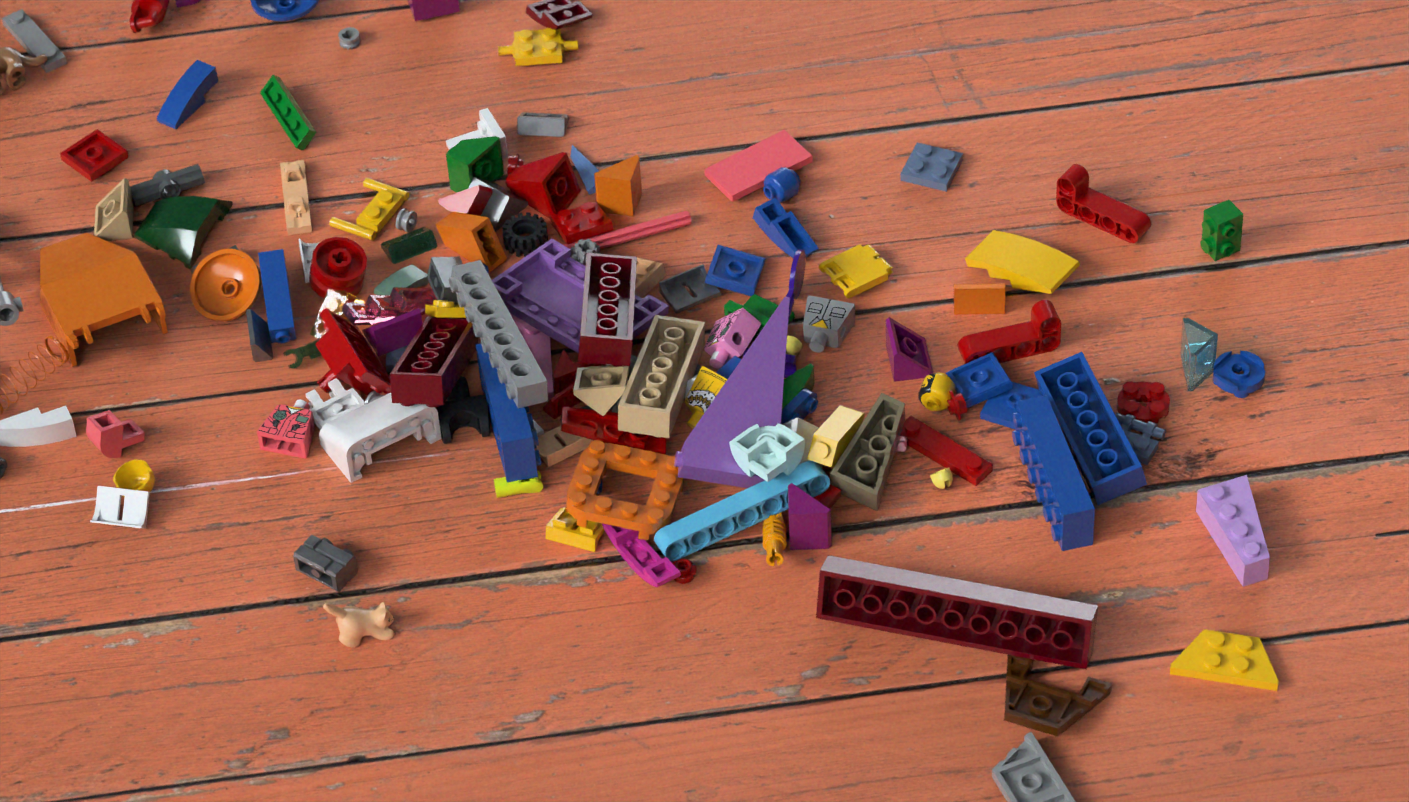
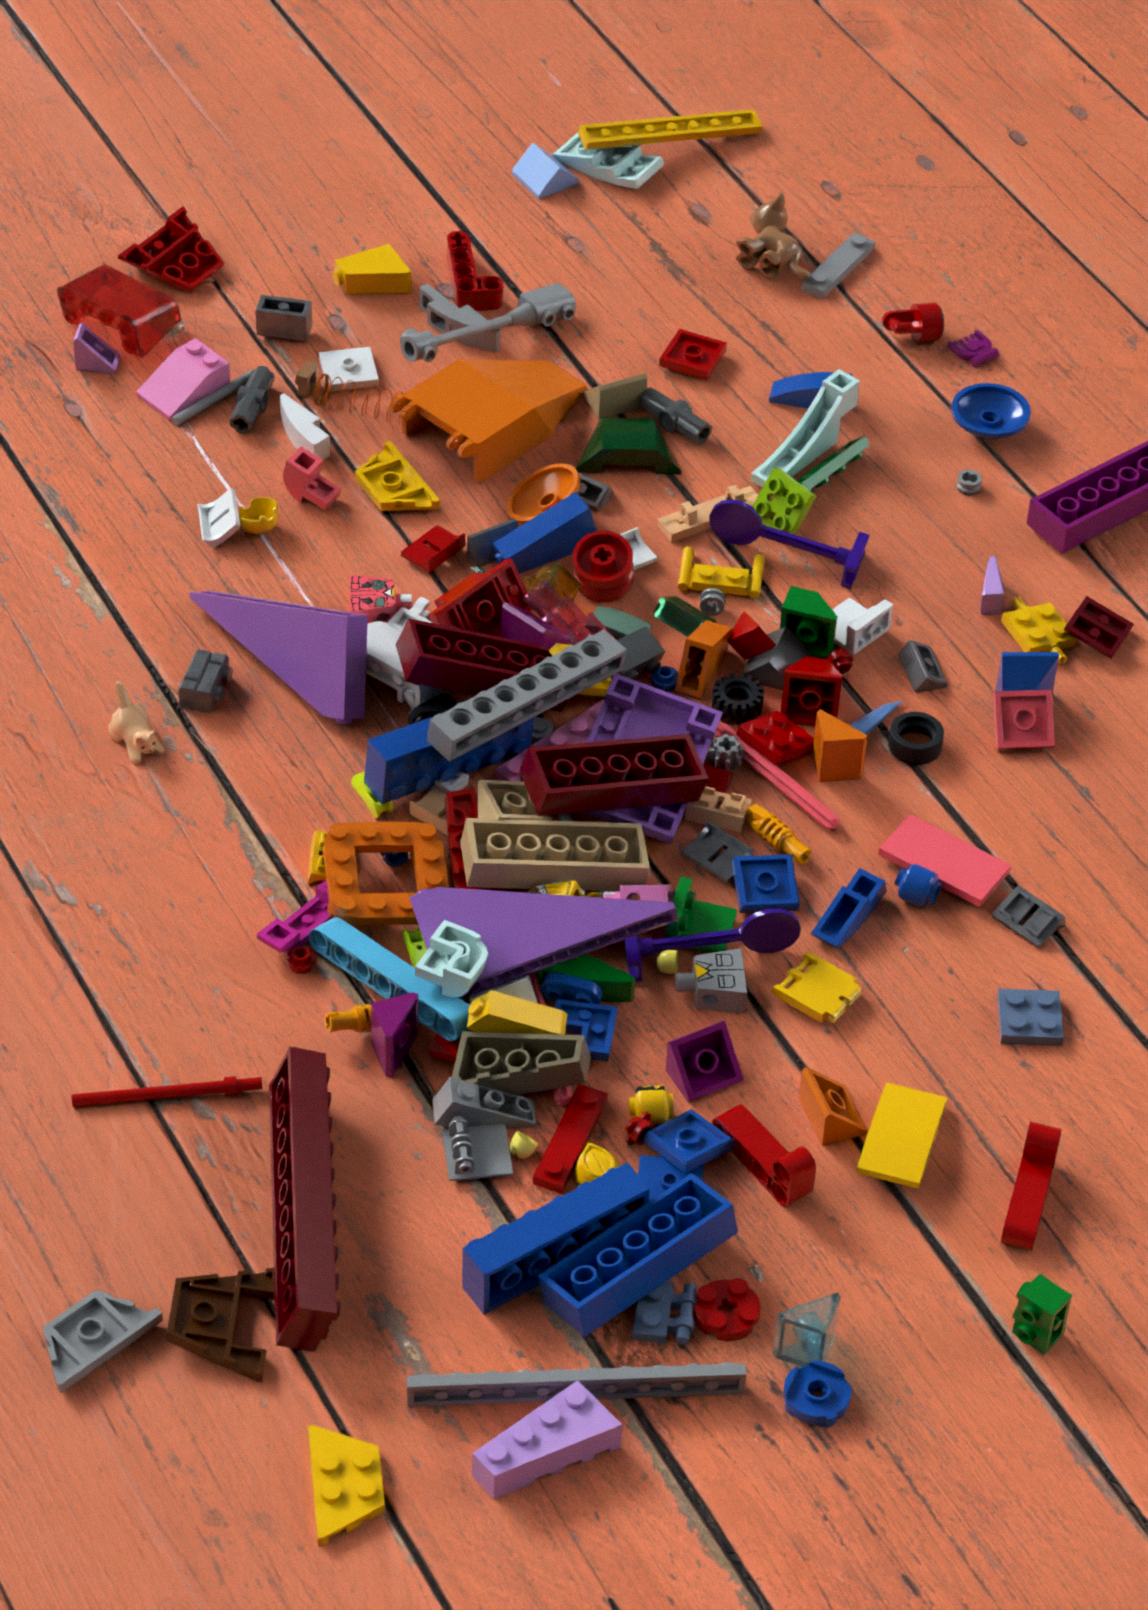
camera: 65 degrees right, 0 degrees up
(139, 383) = (394, 482): none -> yellow wing
(235, 369) = (439, 539): none -> red piece
(250, 104) = (816, 430): none -> light aqua arch
(310, 137) = (789, 508): none -> lime plate
(335, 168) = (742, 525): none -> dark purple piece
(343, 472) = (307, 646): none -> medium lavender slope
(486, 58) = (993, 590): none -> lavender slope
(603, 67) = (1027, 671): none -> blue slope
(620, 133) = (916, 753): none -> black tyre
(640, 78) = (1023, 719): none -> coral plate
(685, 250) = (777, 833): none -> light orange hinge
(705, 494) = (414, 944): none -> lime bar
(802, 648) = (229, 1086): none -> red bar
(824, 143) = (1038, 926): none -> flat silver piece
(831, 400) = (594, 1022): none -> blue plate
(896, 493) = (481, 1106): none -> light grey slope
(935, 508) = (476, 1150): none -> light grey hinge
(983, 441) = (593, 1163): none -> yellow hat
(1184, 508) = (601, 1383): none -> light grey plate

